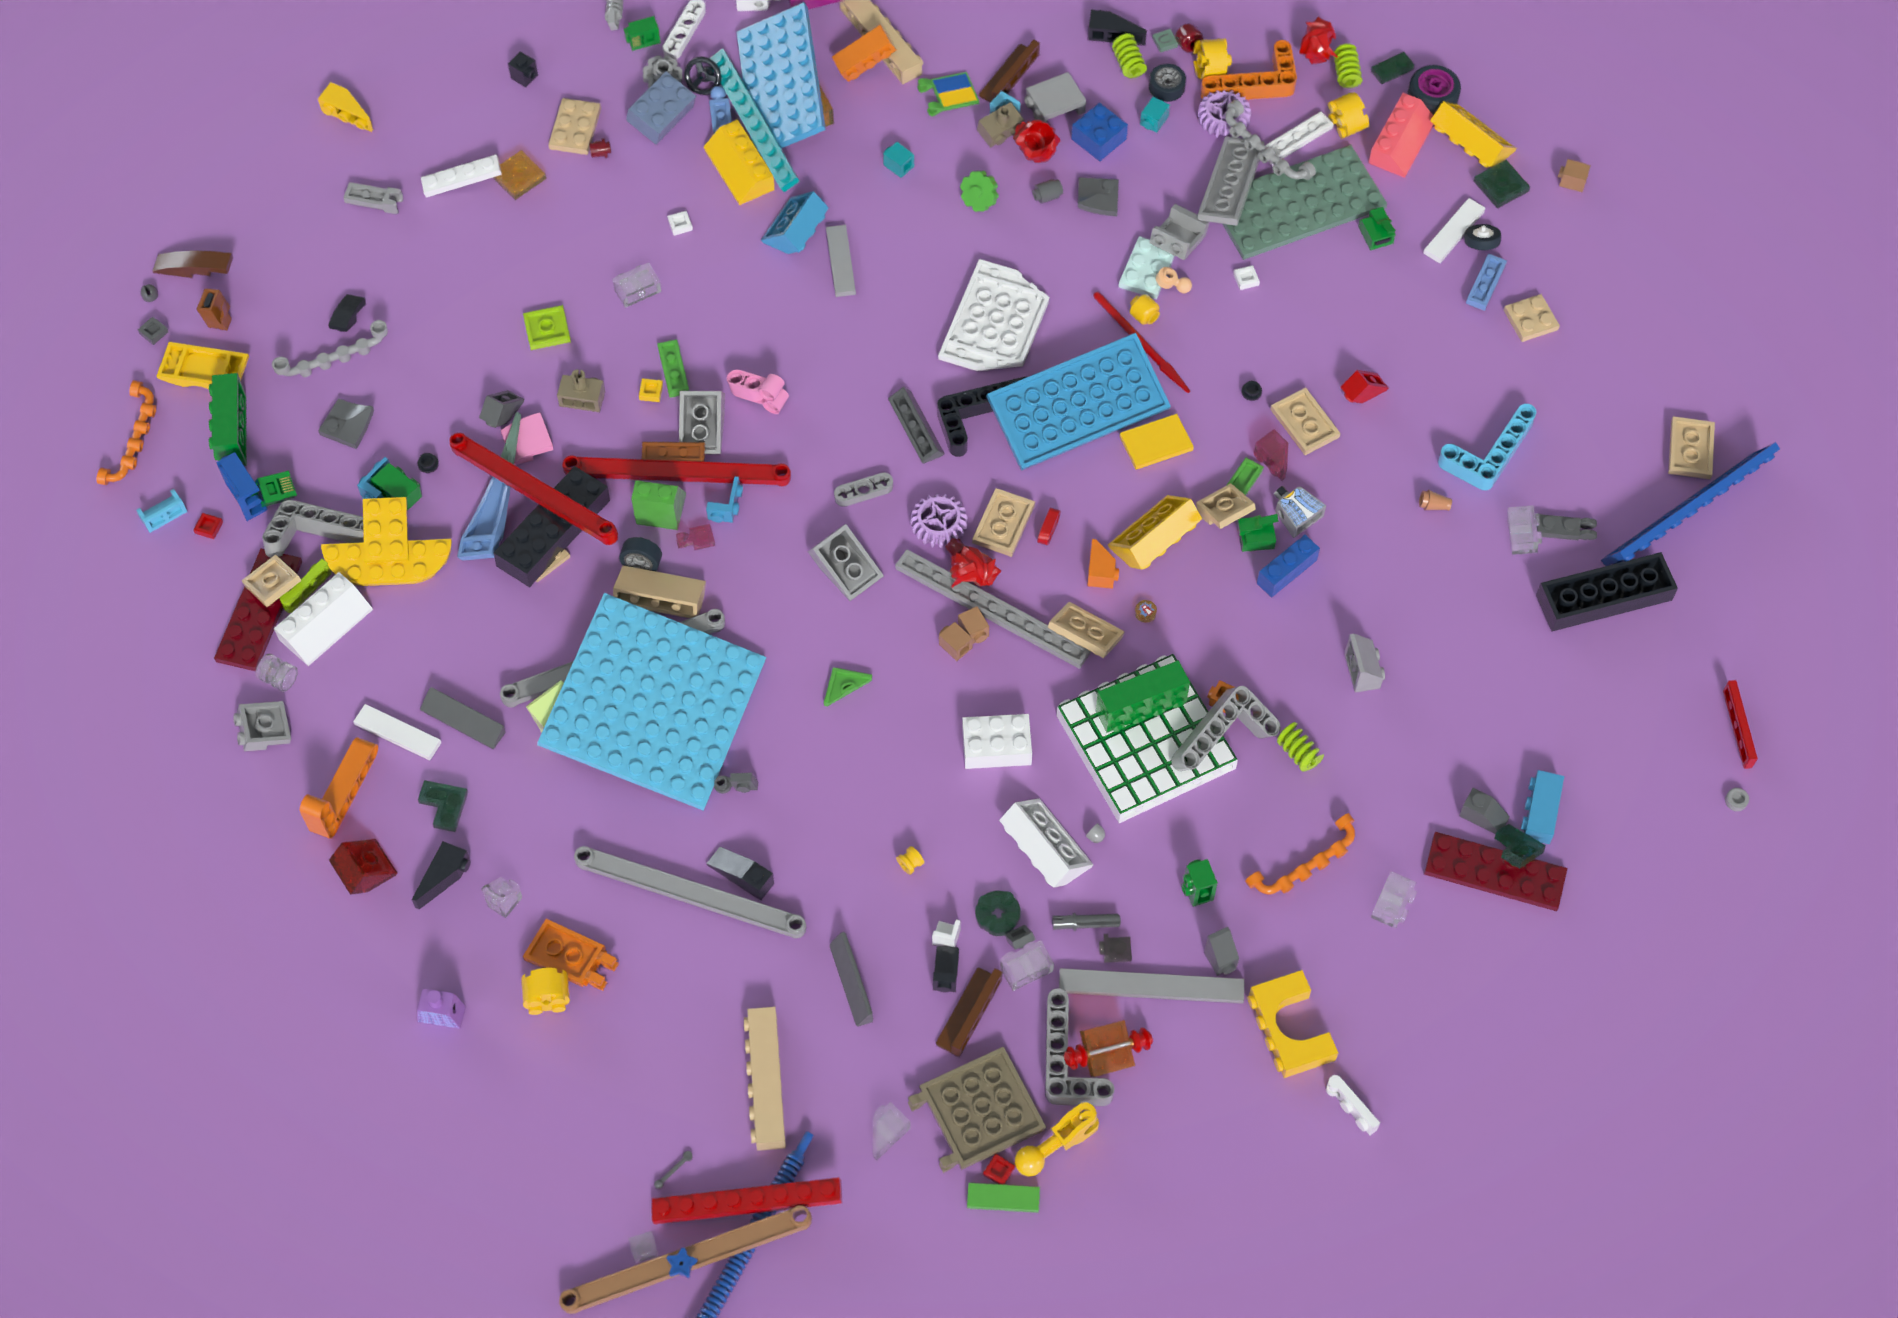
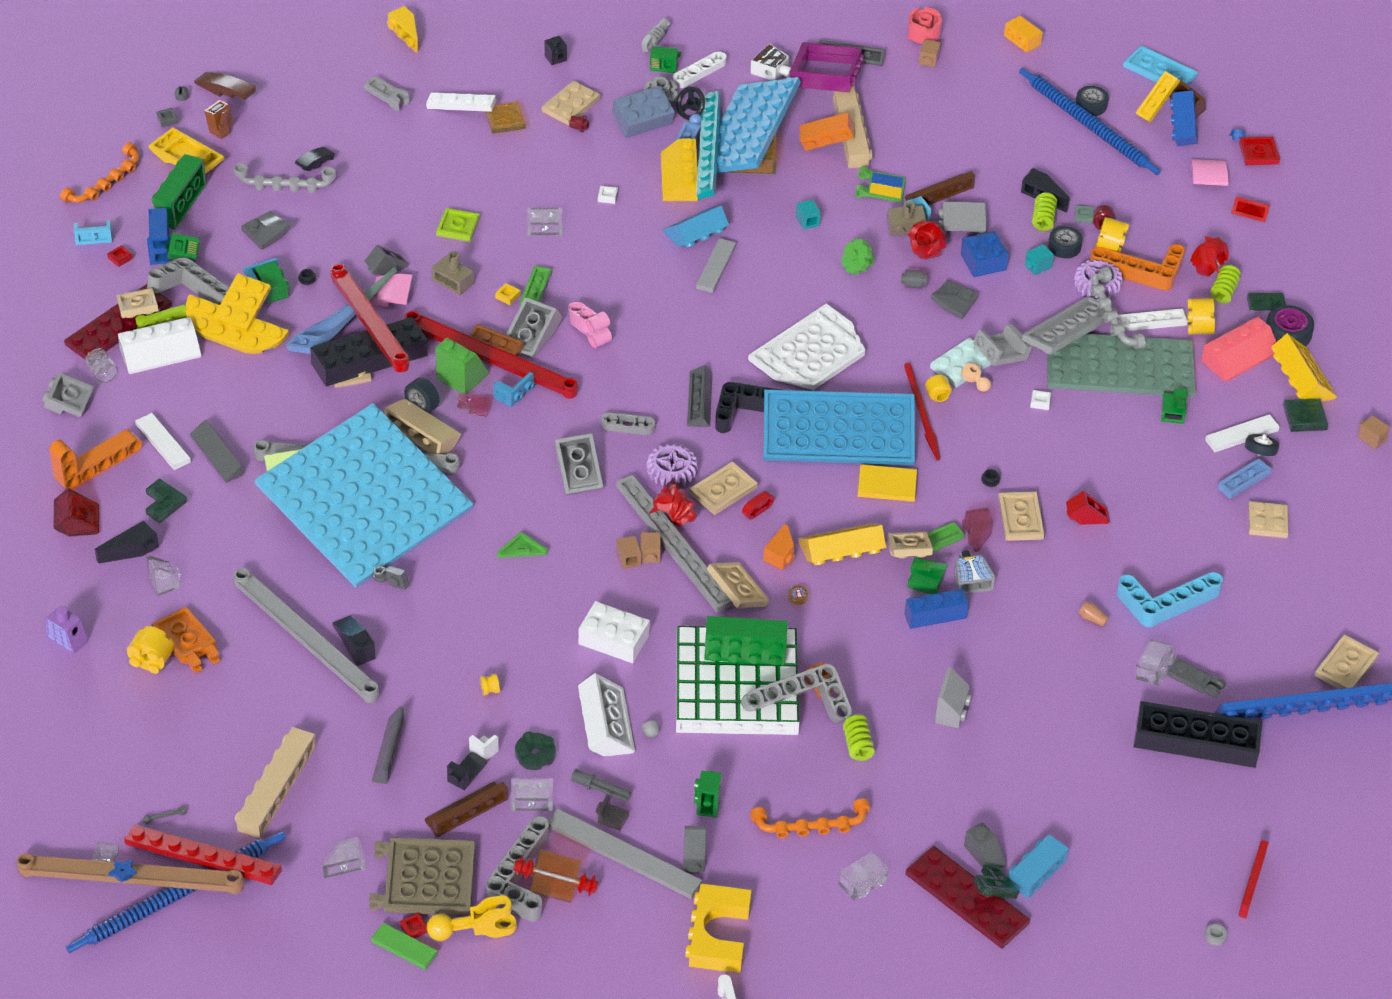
camera: 25 degrees right, 15 degrees down
(1019, 937) = (540, 772): dark grey plate -> none

